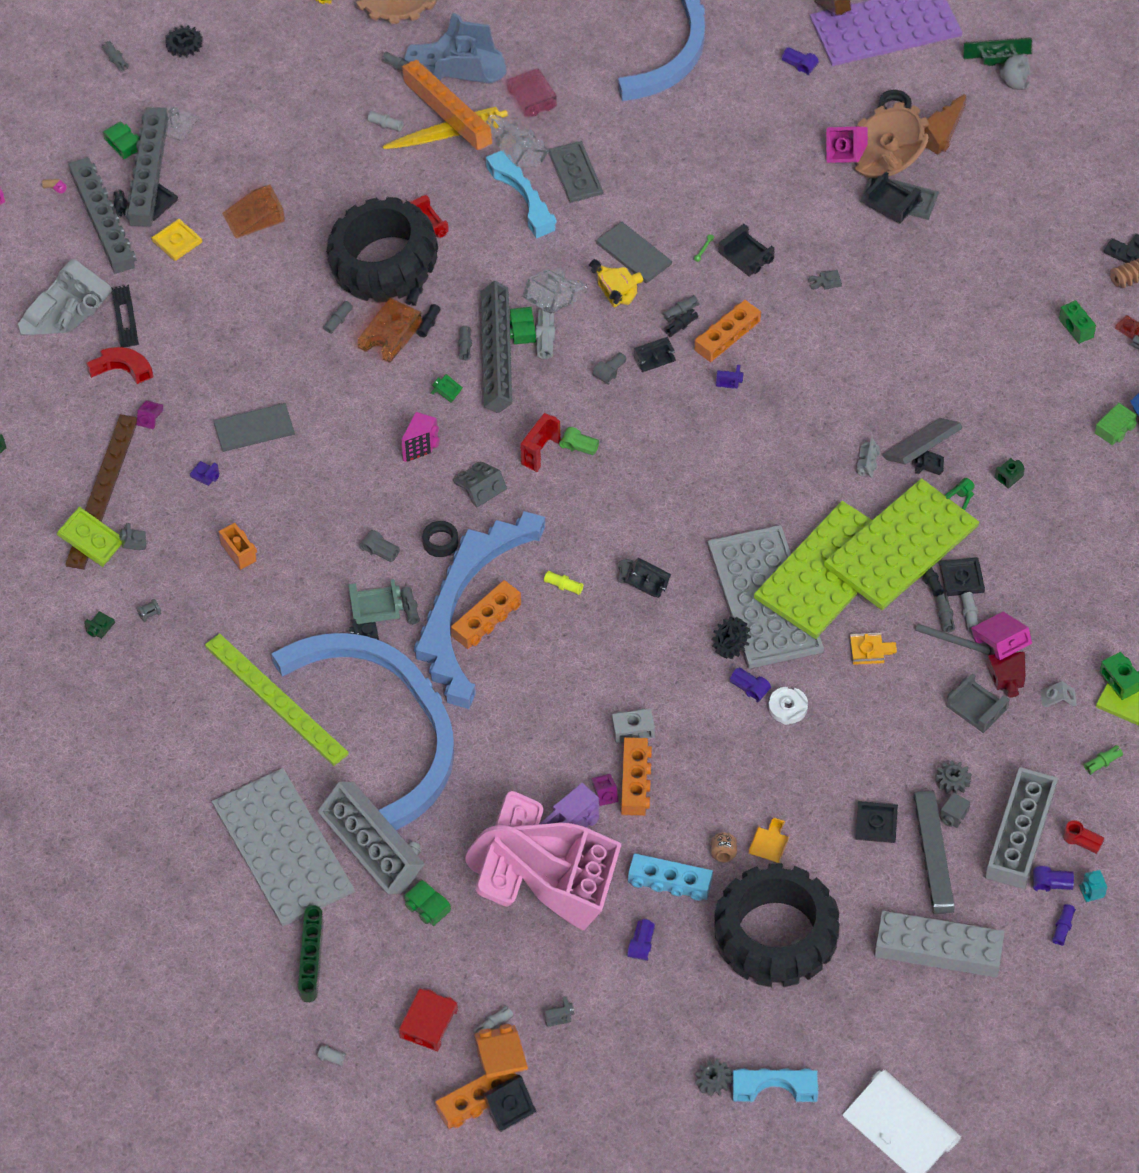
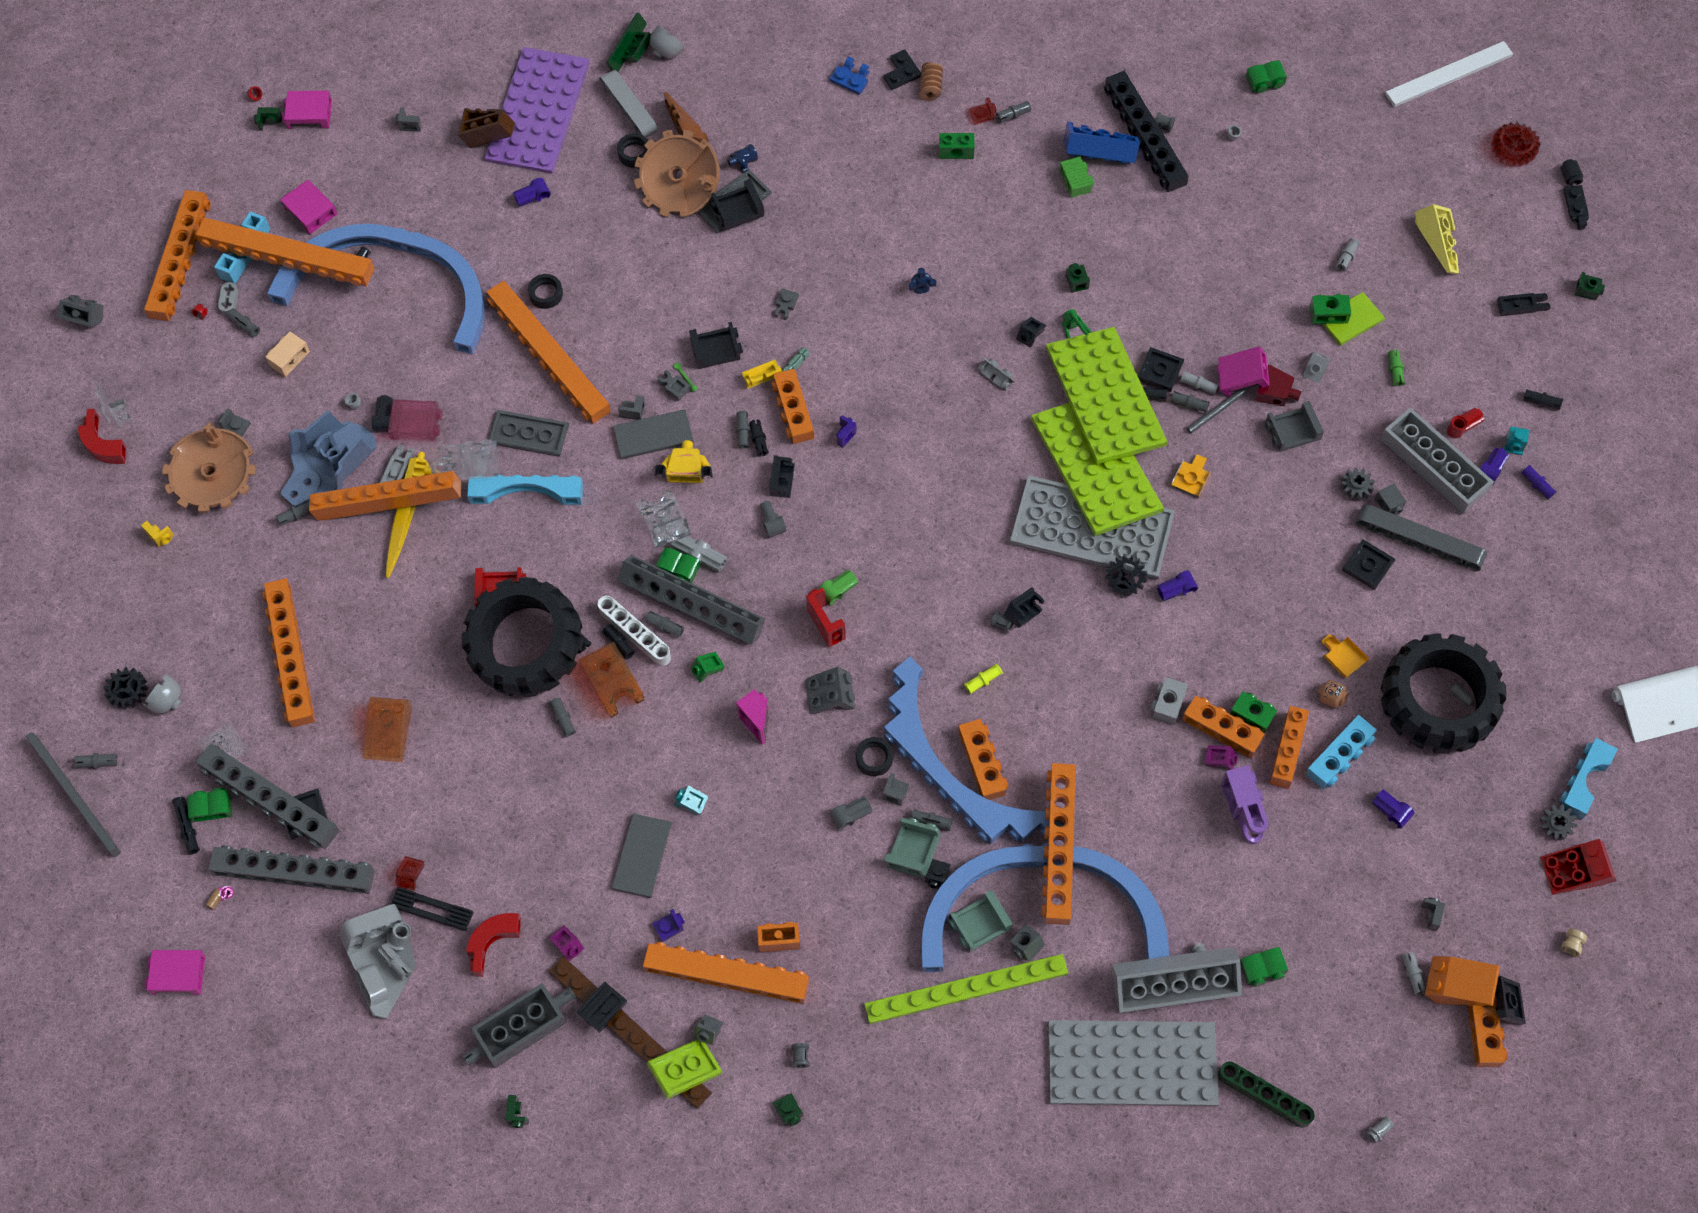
camera: 60 degrees left, 10 degrees up
(62, 414) = (518, 1025): none -> dark grey brick
(79, 57) = (73, 794): none -> dark grey tile
(93, 139) = (187, 833): none -> black pin
(107, 457) = (602, 1007): none -> black plate
(120, 202) = (290, 845): black pin -> none
(144, 285) = (408, 872): none -> clear red bracket
(177, 239) = (370, 815): yellow plate -> none
(187, 528) = (726, 973): none -> orange brick
(191, 65) = (164, 696): none -> light grey cylinder
(277, 120) = (304, 712): none -> orange brick
(321, 434) = (690, 799): none -> bracket
(339, 680) = (980, 922): none -> sand green panel
(339, 719) = (1033, 942): none -> dark grey brick
(385, 121) = (356, 559): light grey pin -> none
(420, 566) = (895, 790): none -> dark grey panel
(428, 1019) = (1387, 1025): red panel -> none
(433, 703) = (1066, 775): none -> orange brick
(444, 325) = (631, 623): none -> white beam
(485, 102) = (397, 466): none -> light grey hinge
(515, 70) = (382, 415): none -> black piece
(522, 47) = (353, 401): none -> light grey hinge
(560, 862) = (1304, 833): bright pink brick -> none
(601, 1137) = (1574, 942): none -> tan wheel
(646, 227) = (632, 410): none -> dark grey panel
(650, 832) = (1289, 747): none -> orange brick
(657, 145) = (548, 351): none -> orange brick
(664, 783) = (1249, 701): none -> green brick
(681, 1114) = (1578, 867): none -> red slope
(689, 243) = (674, 386): none -> dark grey plate
(713, 105) = (548, 302): none -> black tyre
(740, 293) = (761, 373): none -> yellow hinge
(770, 313) = (797, 359): none -> sand green axle
(788, 715) = (1211, 578): white plate -> none
(846, 143) = (655, 207): dark pink slope -> none
(917, 360) = (922, 282): none -> dark blue piece
(922, 441) = (1008, 322): dark grey tile -> none
(937, 79) = (629, 103): none -> light grey beam
(939, 944) = (1514, 581): light grey brick -> none
(946, 180) = (743, 156): none -> dark blue piece
(1087, 216) = (845, 78): none -> blue plate

